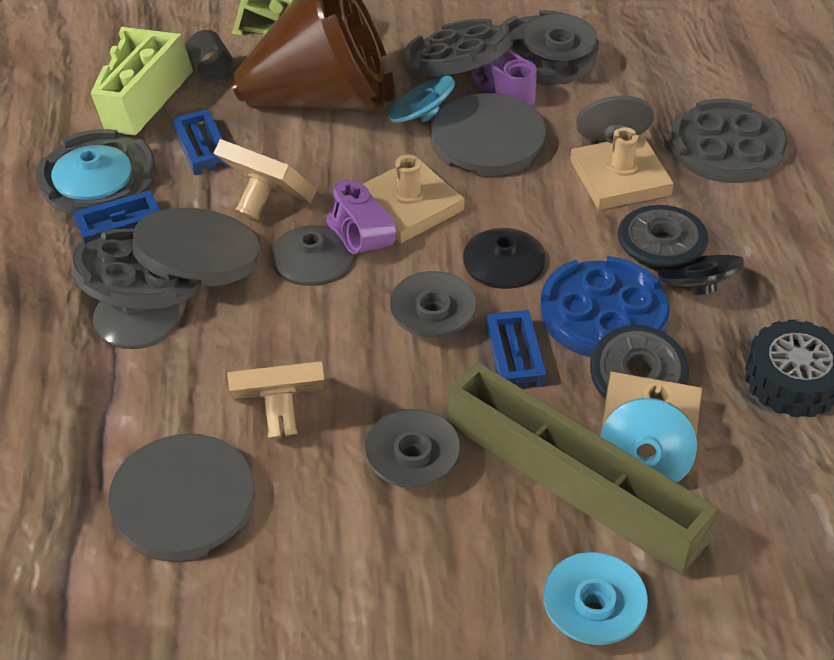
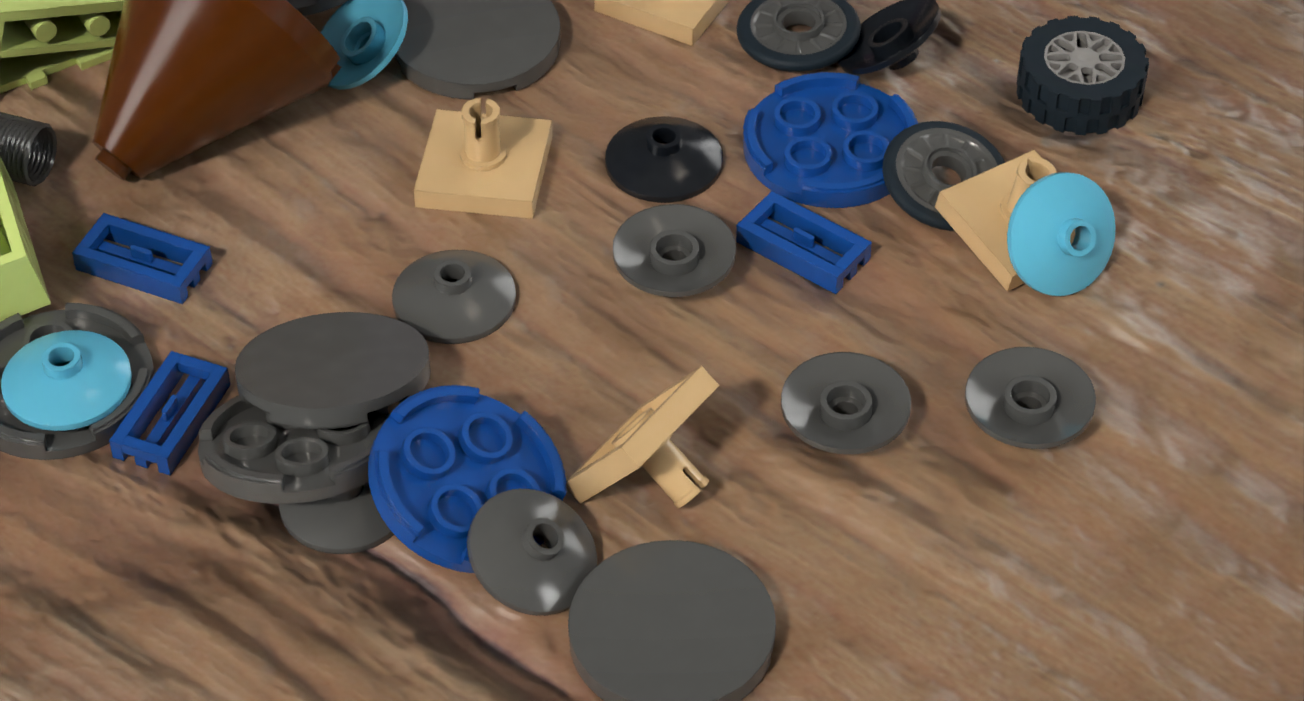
camera: 45 degrees left, 0 degrees up
(152, 420) = (515, 566): none -> dark grey dish
(177, 342) = (446, 458): none -> blue tile
(263, 176) = (311, 237): tan tile -> none
(360, 219) = (472, 214): medium lavender piece -> none
(518, 508) = (1030, 397): none -> dark grey dish
(581, 467) = (1023, 299): olive brick -> none
(596, 580) = (1178, 407): medium azure dish -> none

